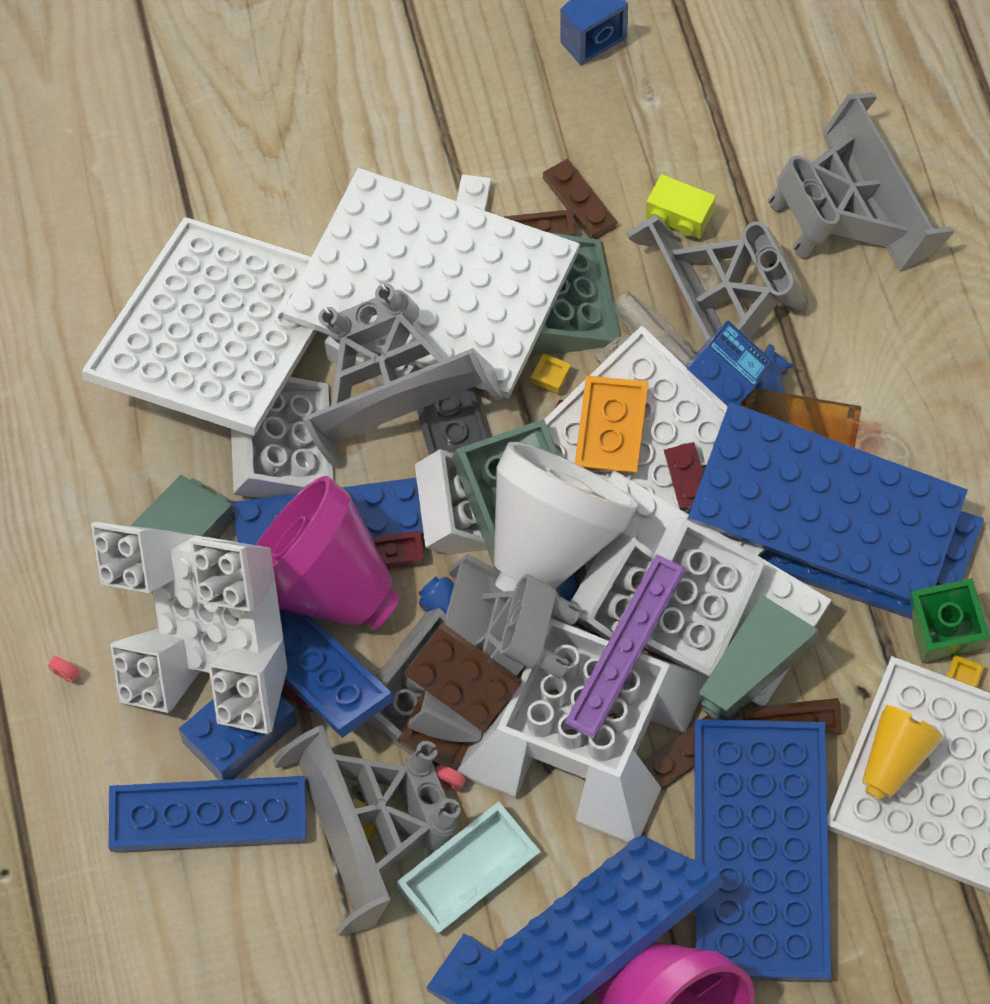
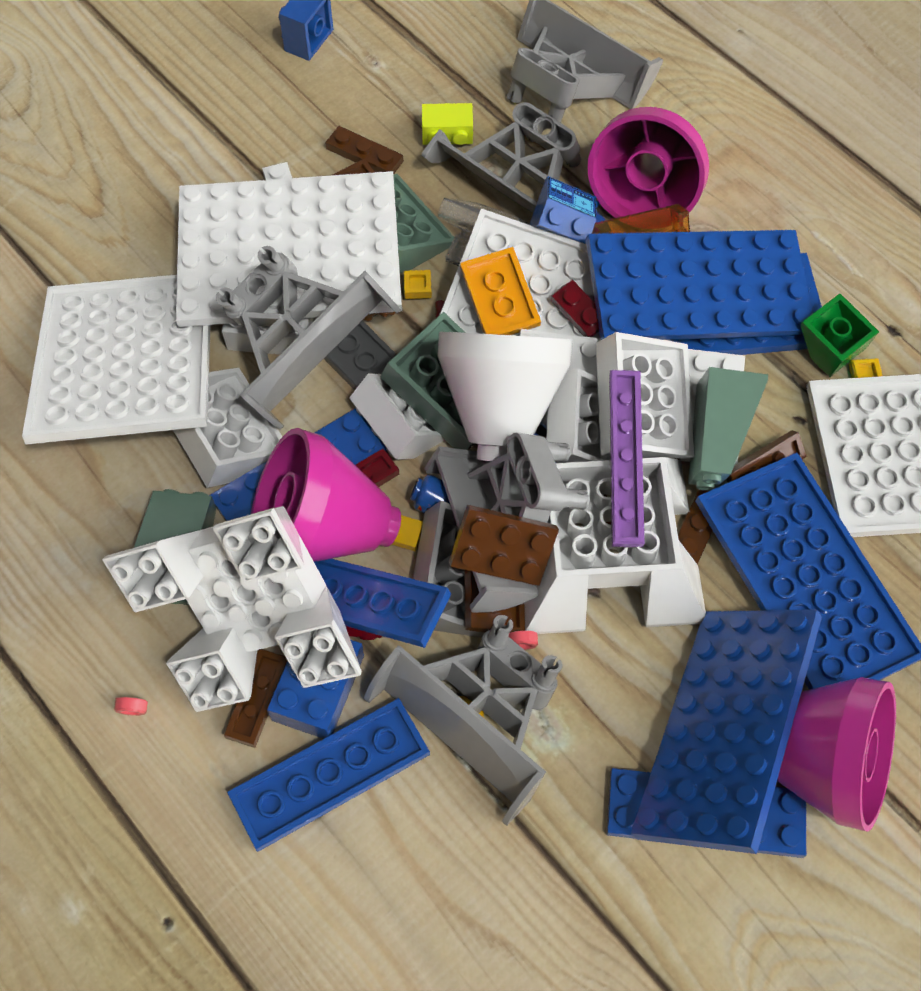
camera: 30 degrees left, 0 degrees up
(163, 728) = (250, 716): none -> reddish brown plate
(399, 624) = (409, 533): none -> yellow tile
(467, 868) = (582, 711): light aqua slope -> none
(857, 345) = (647, 162): none -> dark pink cone
(897, 751) = (870, 447): yellow cone -> none

